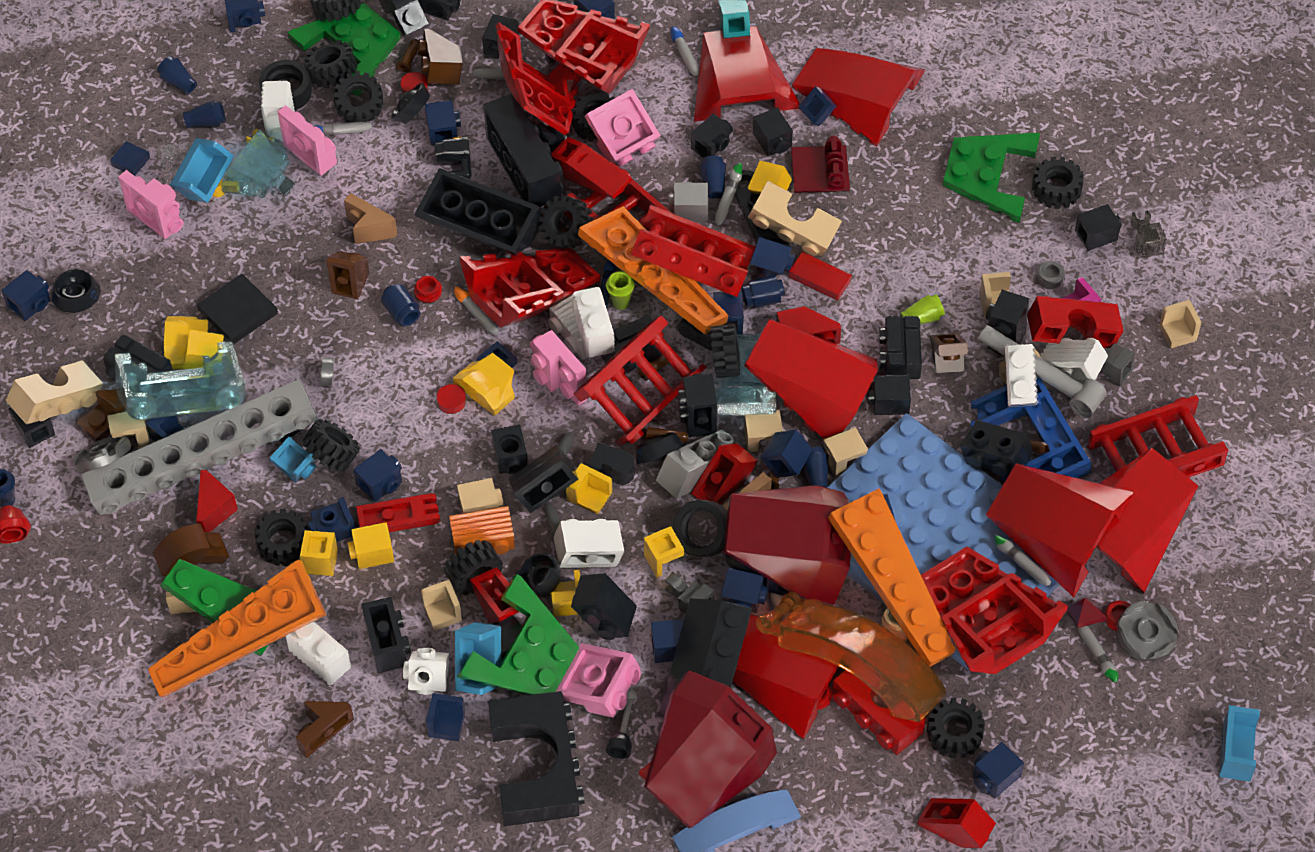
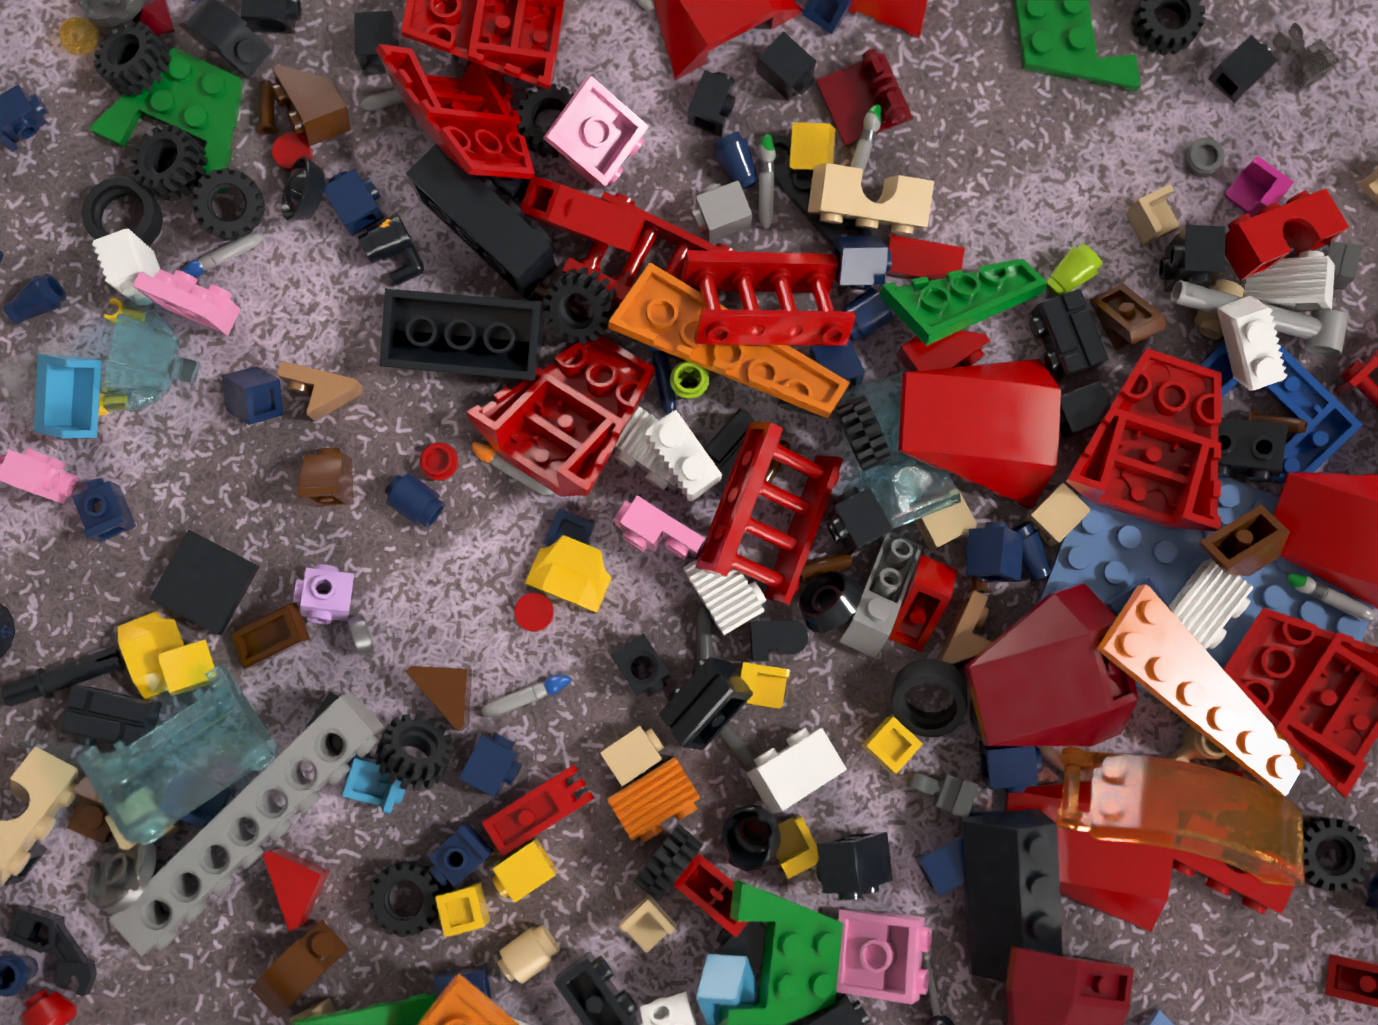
camera: 25 degrees left, 25 degrees up
(22, 470) = (64, 946): none -> black piece
(112, 333) = (63, 676): none -> black axle
(189, 242) = (112, 518): none -> dark blue brick
(266, 351) = (270, 636): none -> reddish brown tile
(315, 337) = (328, 581): none -> lavender brick
(321, 212) = (252, 395): none -> dark blue panel
(349, 596) = (528, 954): none -> tan brick
(371, 420) = (448, 691): none -> reddish brown slope
(422, 446) = (525, 696): none -> light grey piece
(588, 425) = (727, 598): none -> white brick
(816, 182) = (871, 125): none -> light grey piece
(834, 298) = (962, 299): none -> green wing
(928, 422) = (1158, 446): none -> red wedge
(929, 530) = (1209, 602): none -> white brick
(966, 496) = (1246, 543): none -> reddish brown slope

